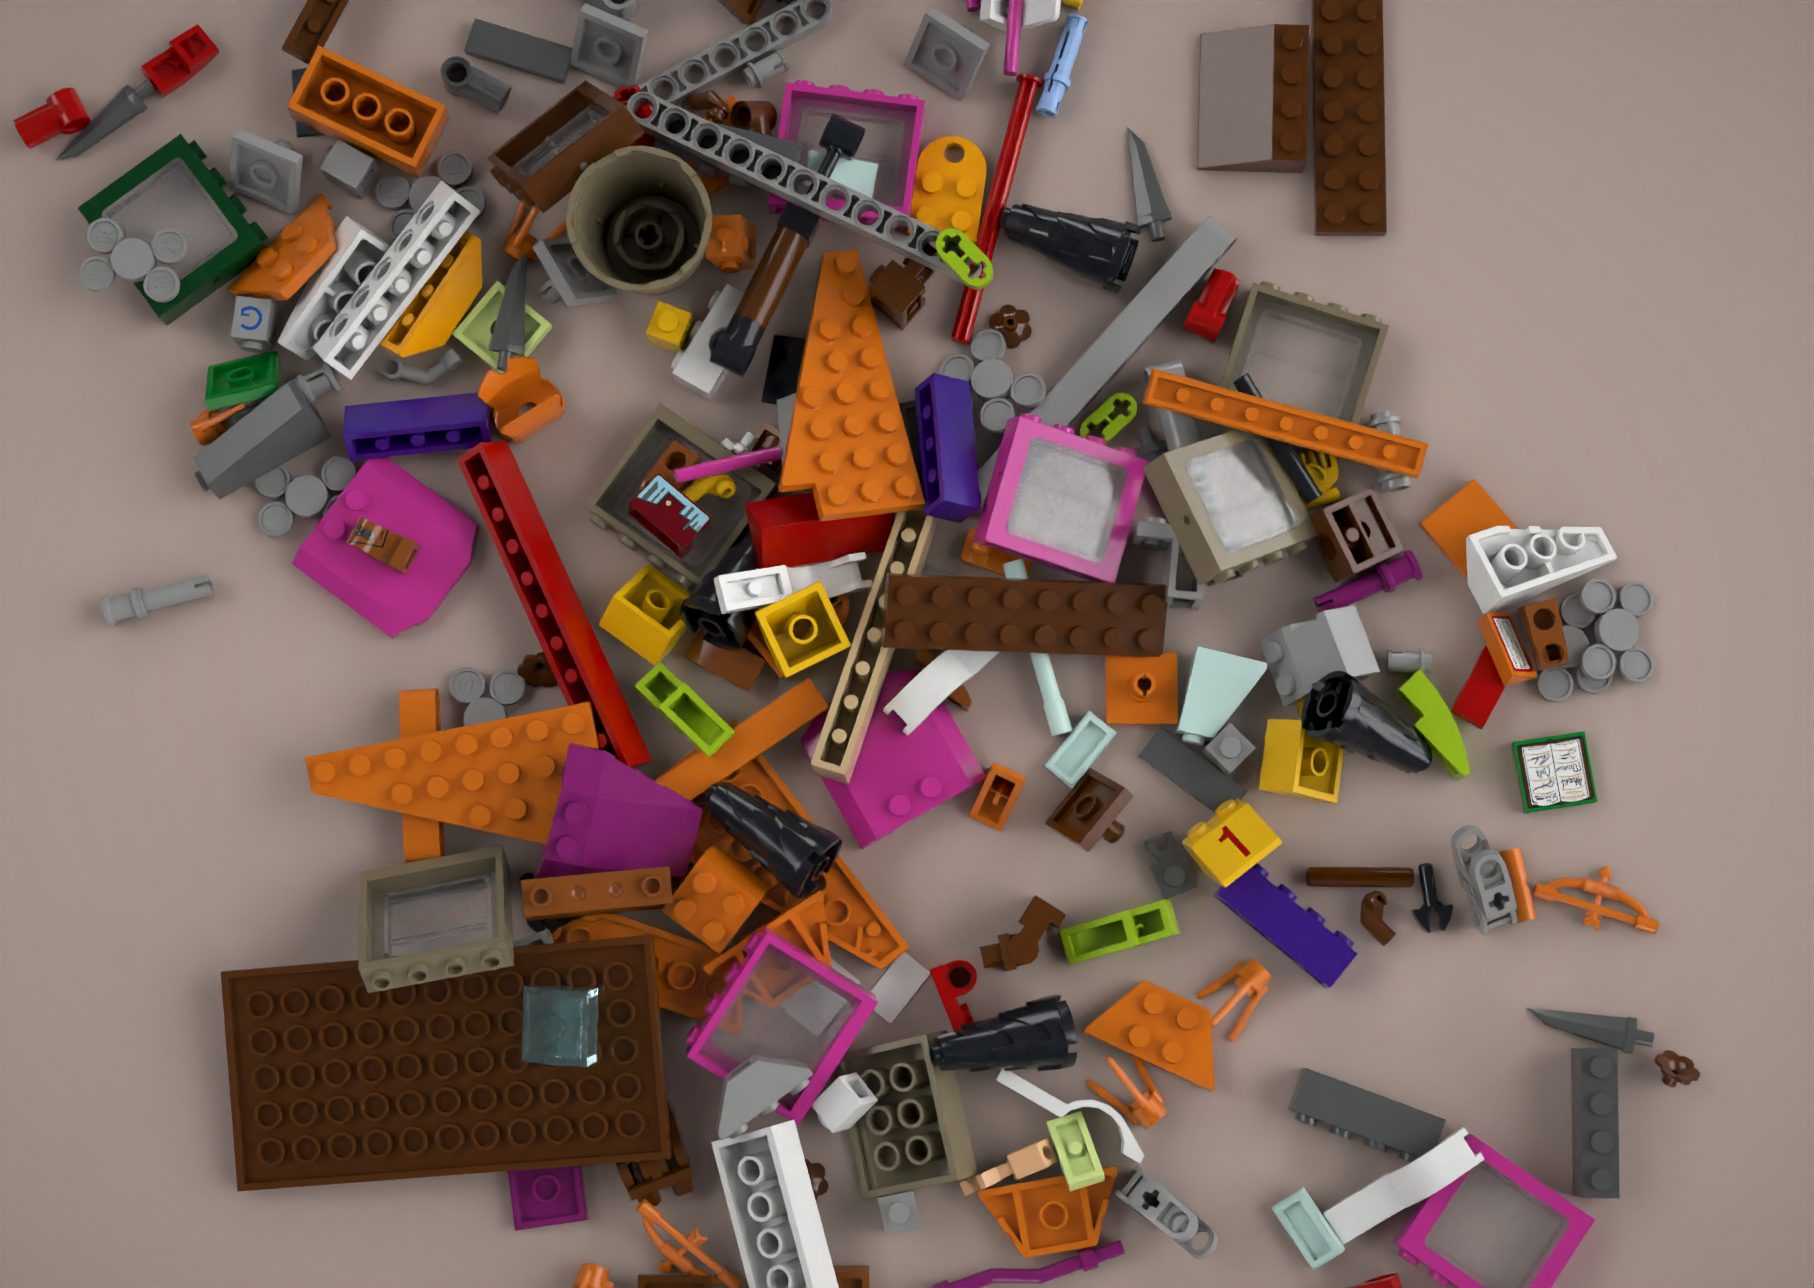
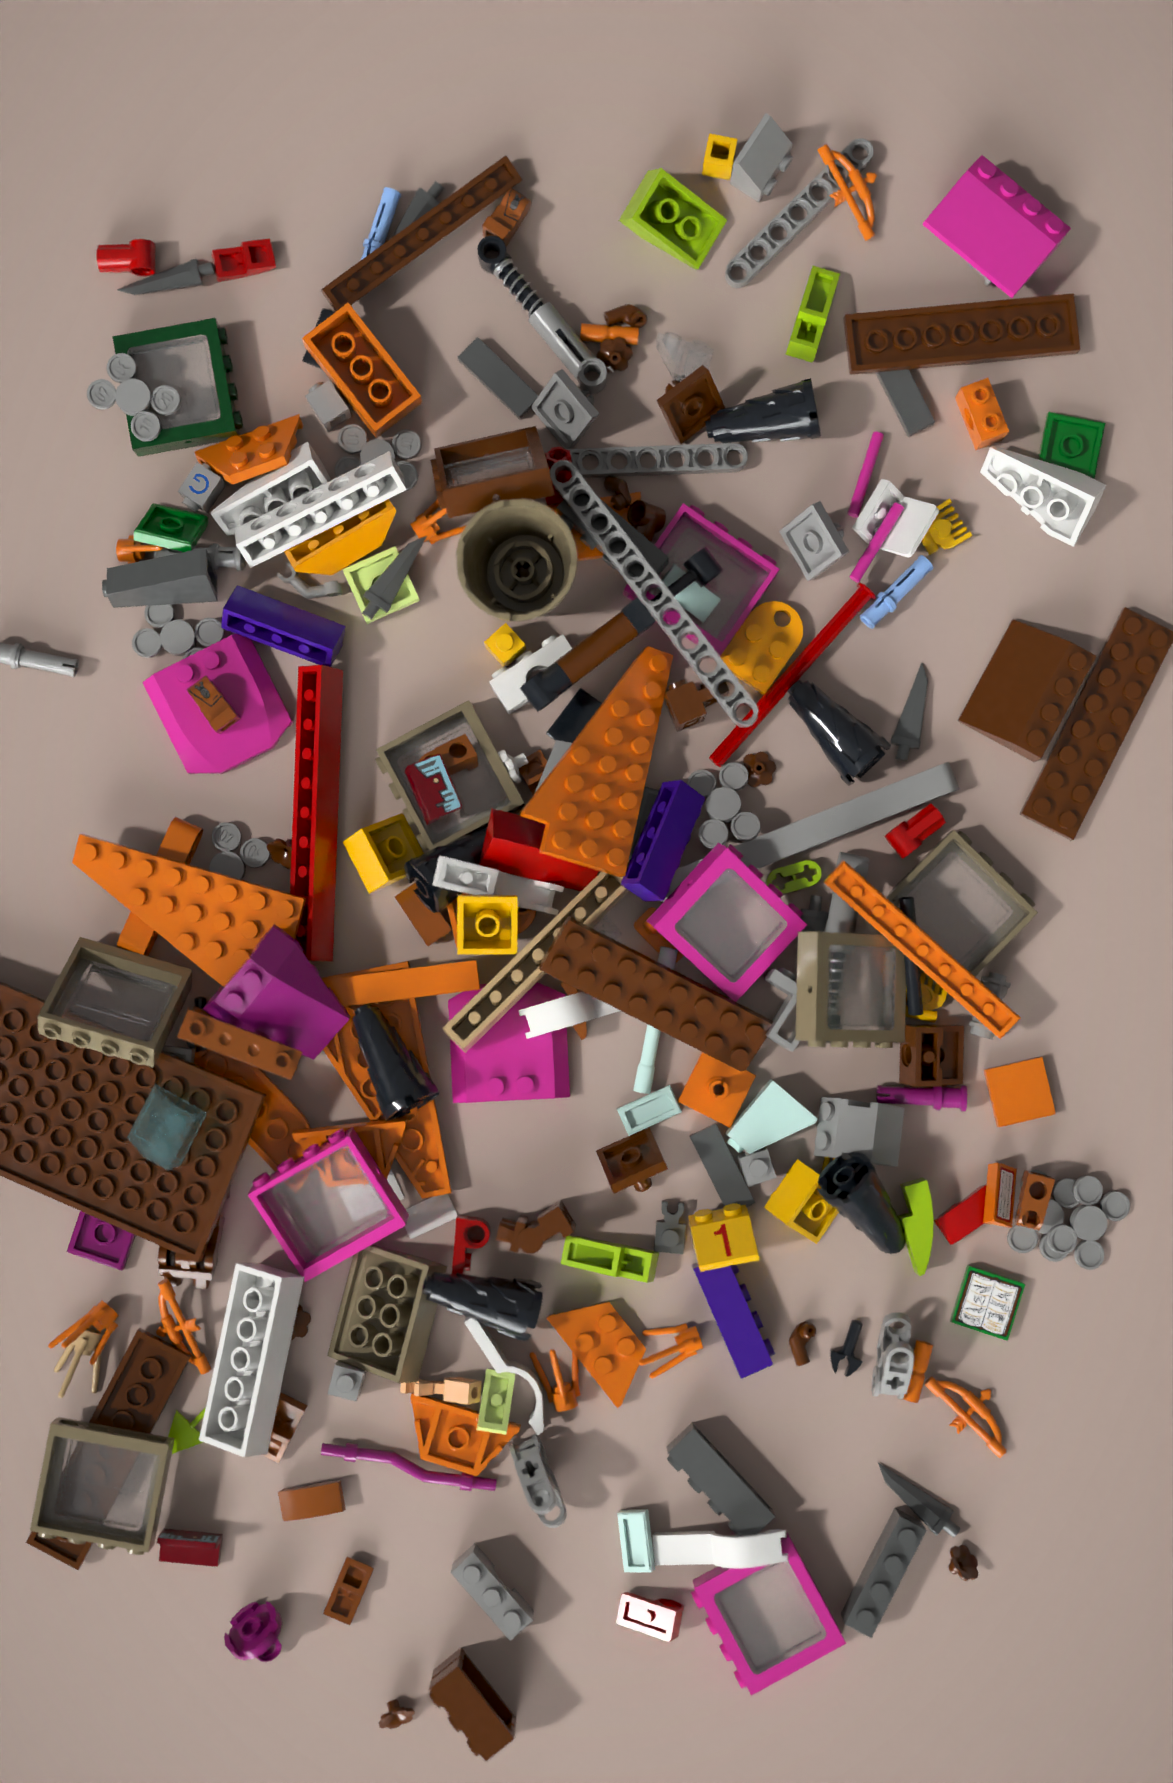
camera: 25 degrees right, 5 degrees up
(266, 170) = (265, 377): light grey tile -> none
(477, 85) = (452, 390): dark grey piece -> none
(515, 389) = (364, 635): orange piece -> none
(568, 275) = (444, 568): light grey tile -> none
(684, 710) = (373, 937): lime slope -> none
(716, 898) = (328, 1088): orange brick -> none
(717, 484) = (476, 779): yellow arm -> none
(727, 464) = (494, 772): dark pink bar -> none
(732, 243) = (582, 605): orange head -> none
(755, 1090) = (286, 1244): light grey slope -> none
(765, 69) = (673, 484): light grey pin -> none
(844, 1102) = (346, 1282): white brick -> none
(957, 264) = (751, 708): lime beam -> none
(997, 796) = (570, 1115): orange slope -> none
(1359, 877) = (805, 1306): reddish brown axle -> none
(1409, 661) = (923, 1168): light grey pin -> none
(1521, 563) = (1044, 1138): white wedge -> none

